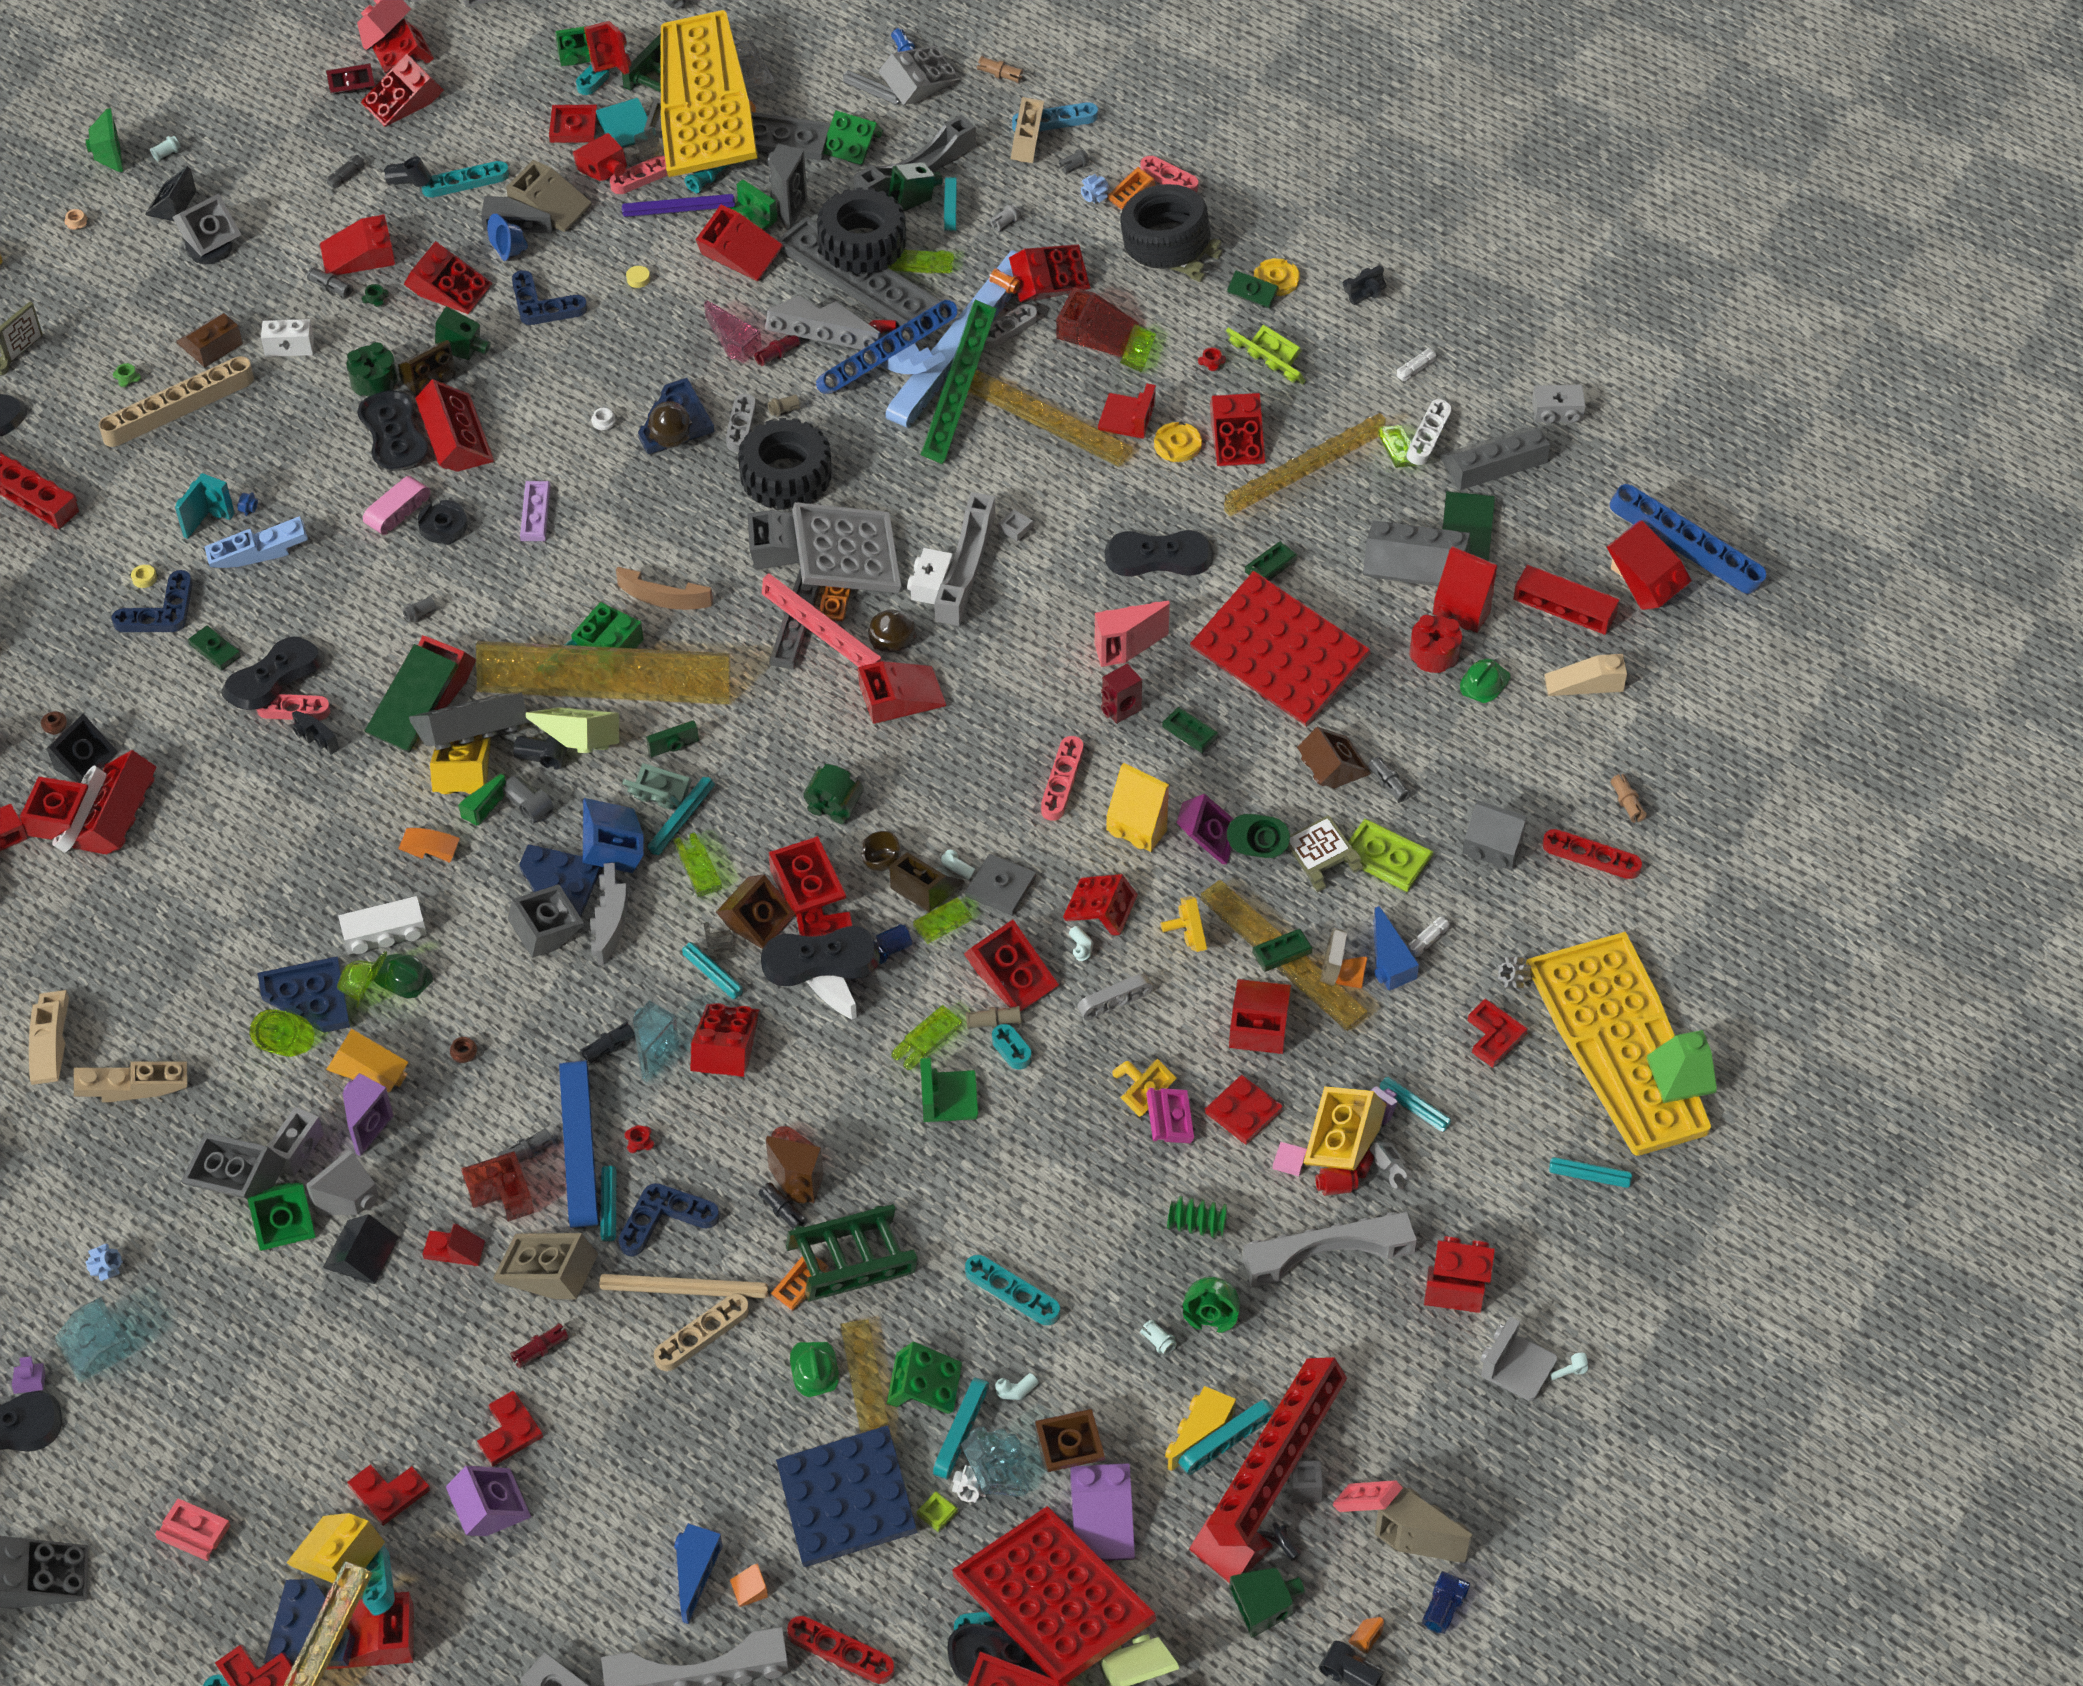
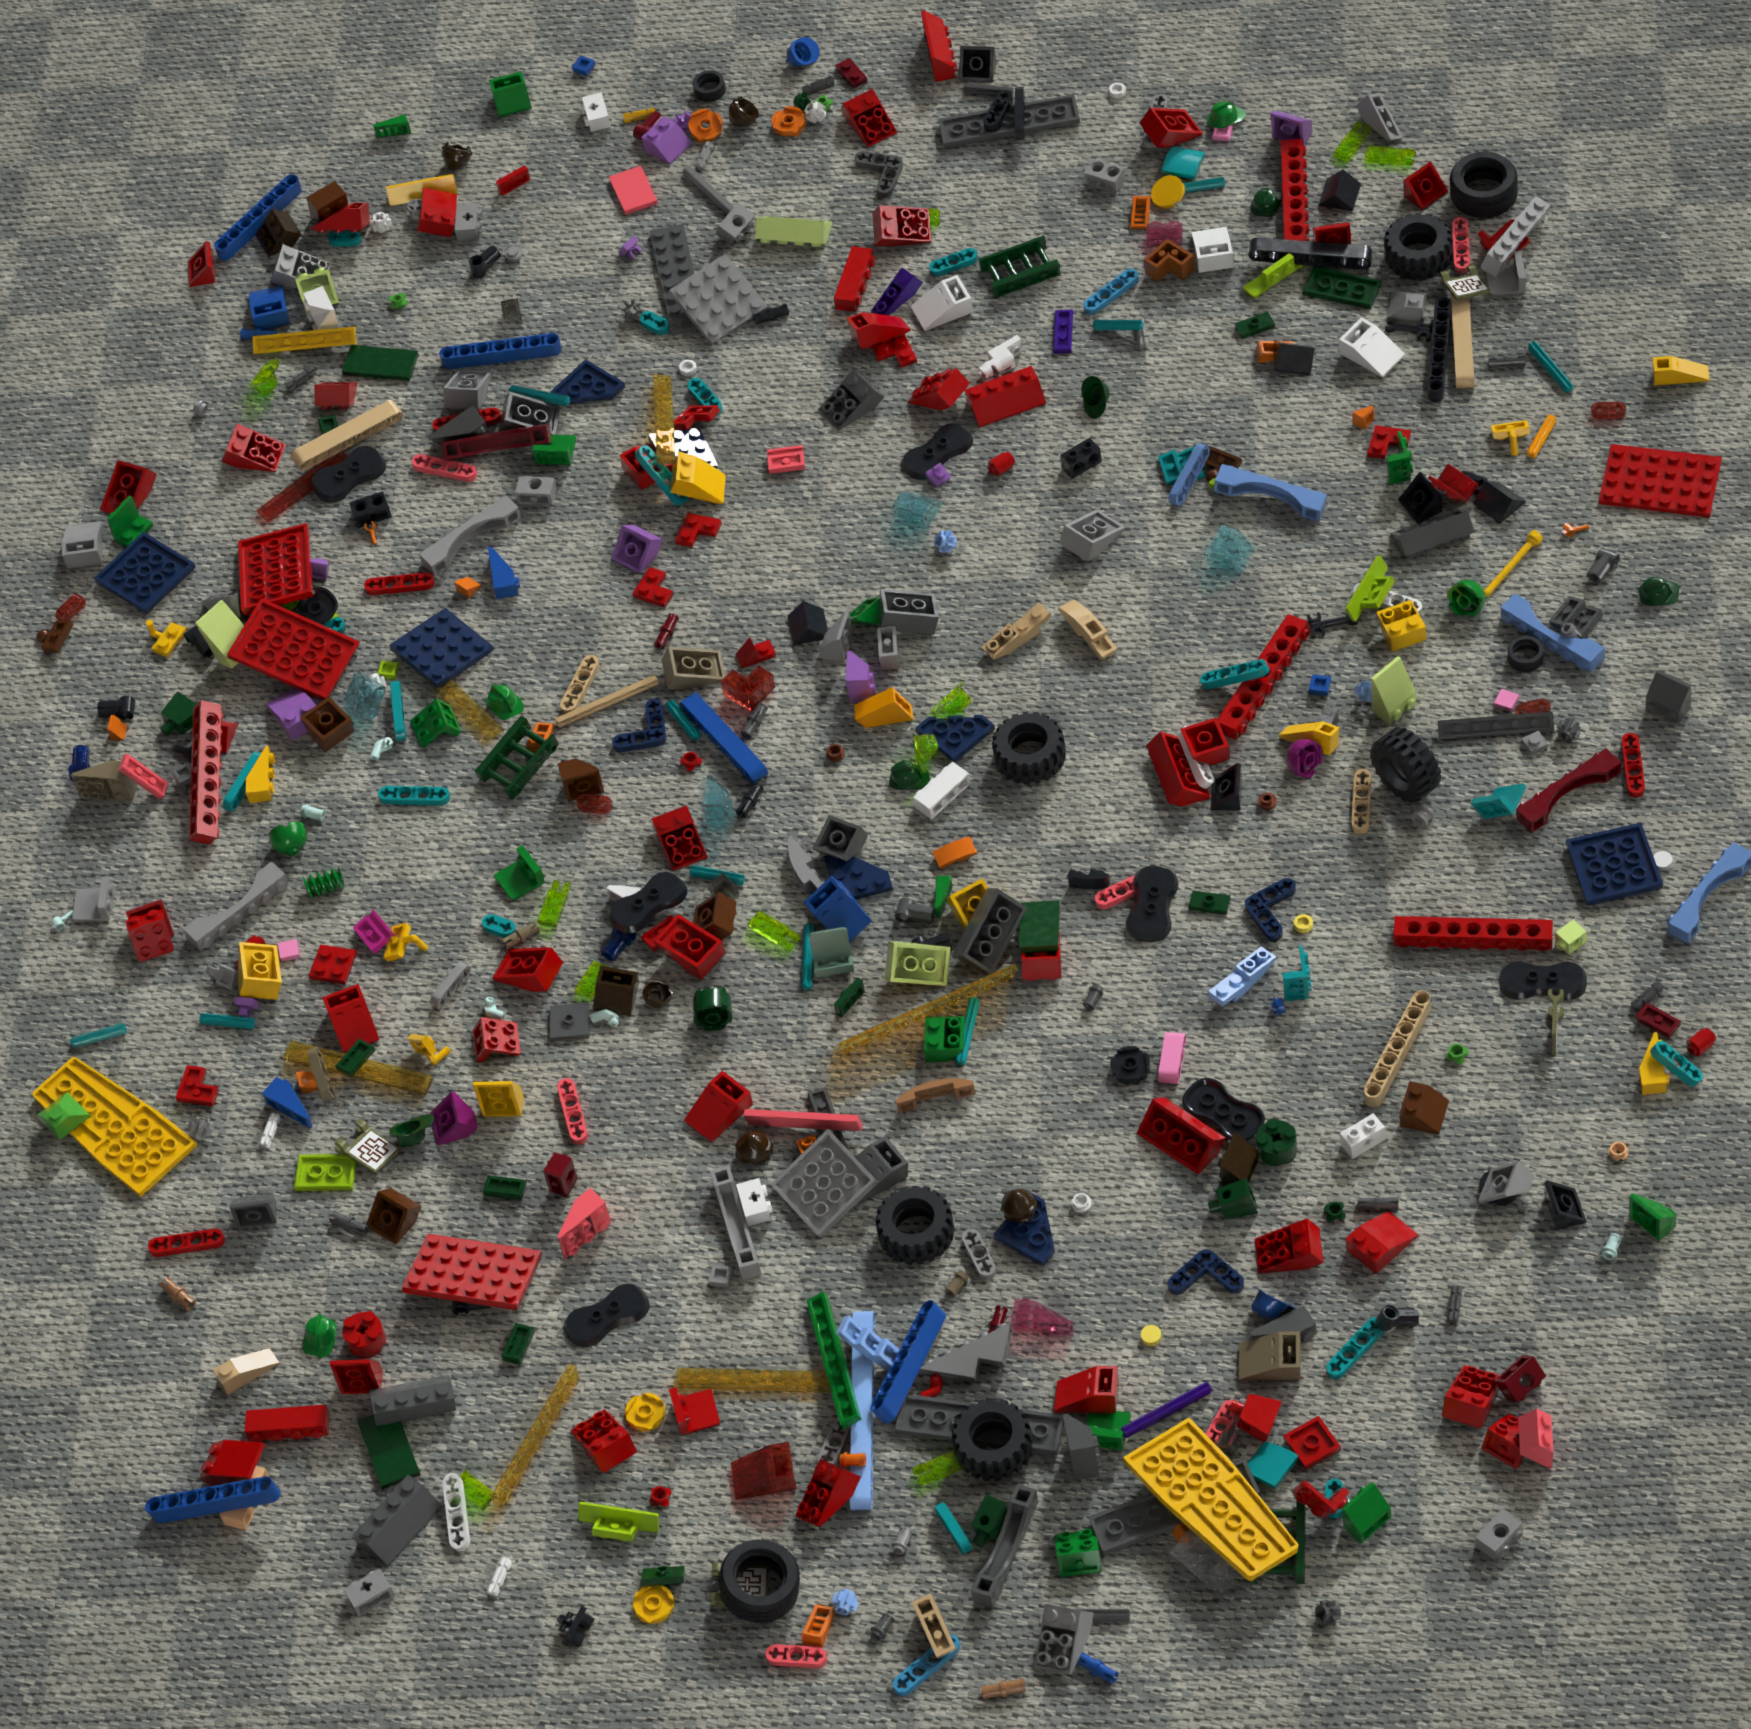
camera: 160 degrees right, 0 degrees up
(254, 938) = (1033, 766): none -> black tyre
(535, 511) = (1074, 1110): lavender tile -> none
(1138, 348) = (720, 1471): clear neon green plate -> none

